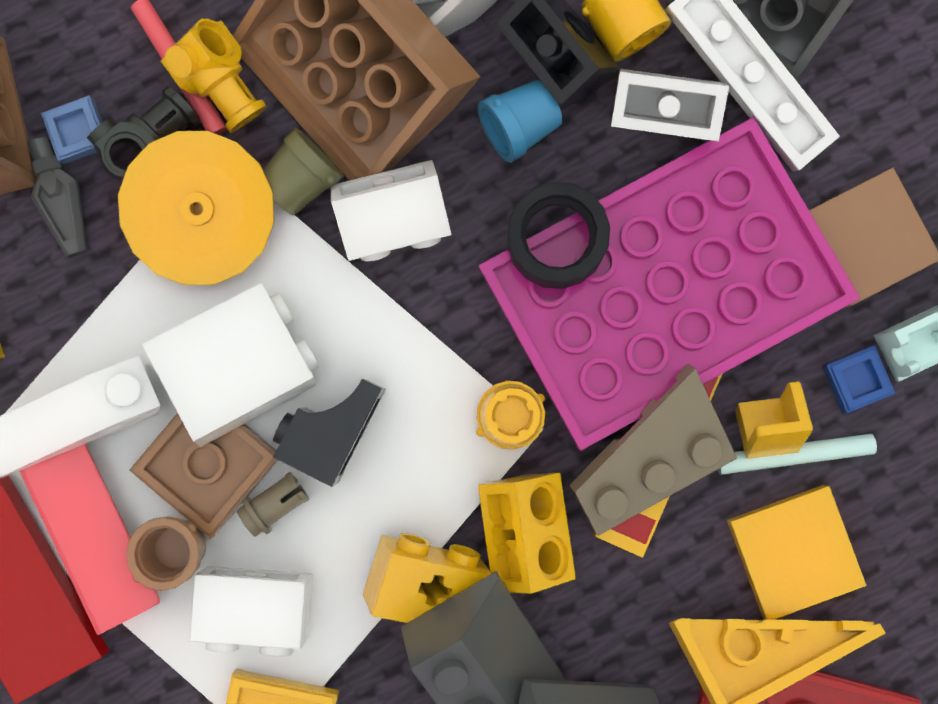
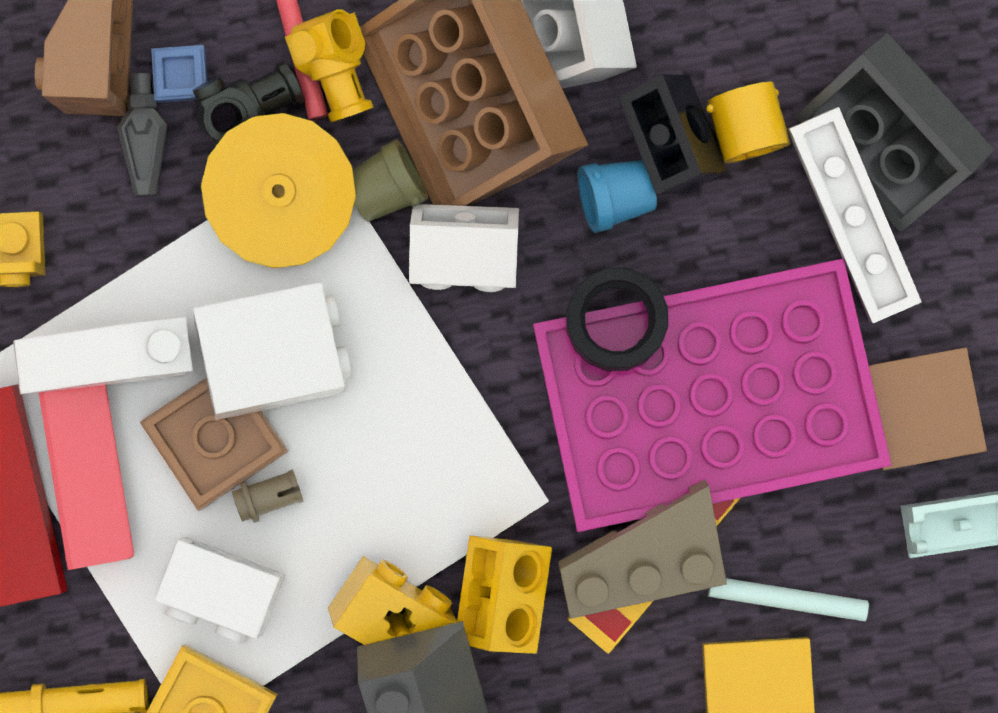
camera: 15 degrees right, 0 degrees up
(165, 552) = (155, 510): medium nougat piece -> none
(326, 440) = (337, 449): black arch -> none
(510, 415) = (521, 478): yellow piece -> none
(669, 104) = (762, 222): white brick -> none
(775, 424) = (772, 562): yellow panel -> none
(858, 379) = (871, 544): blue tile -> none

